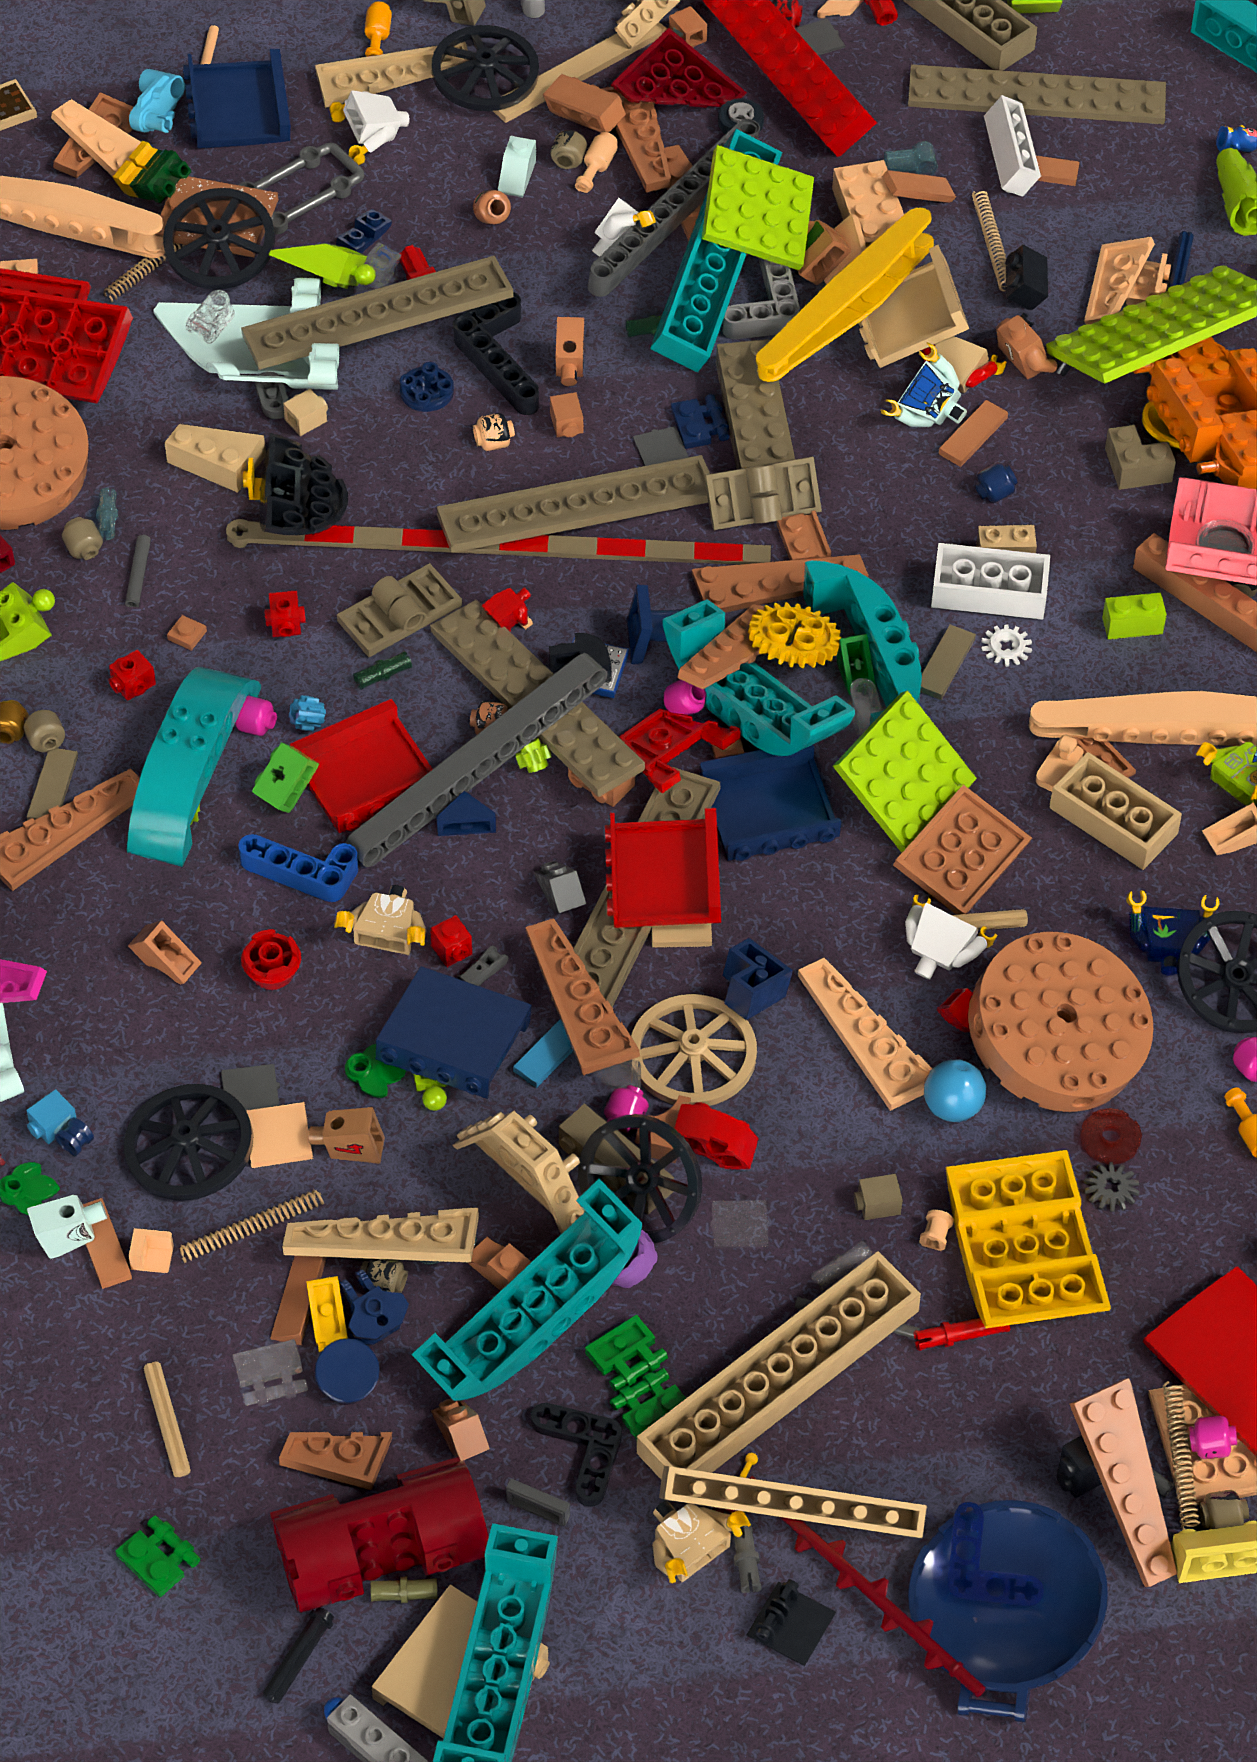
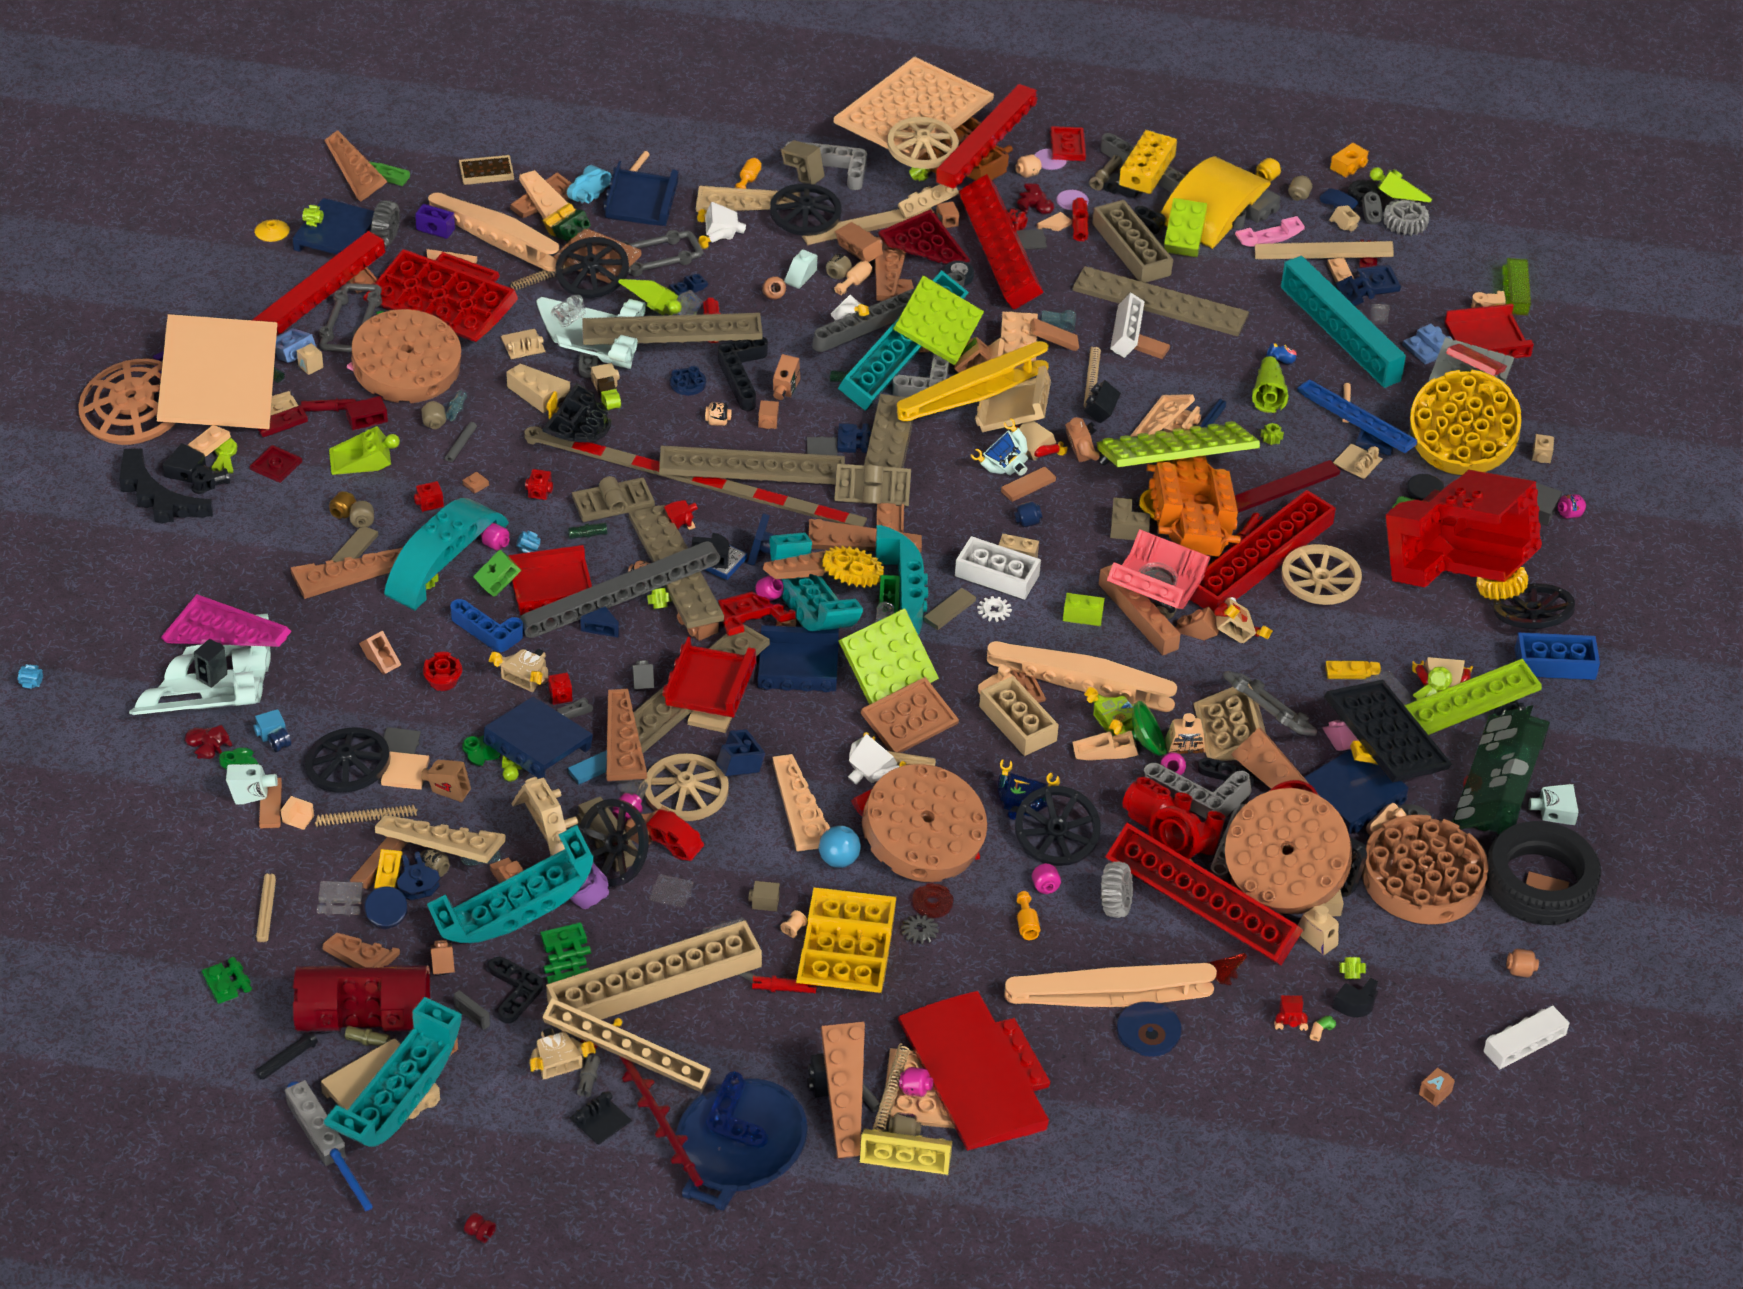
camera: 15 degrees right, 10 degrees down
(163, 385) = (523, 343): none -> tan hinge
(322, 437) = (608, 393): none -> leg

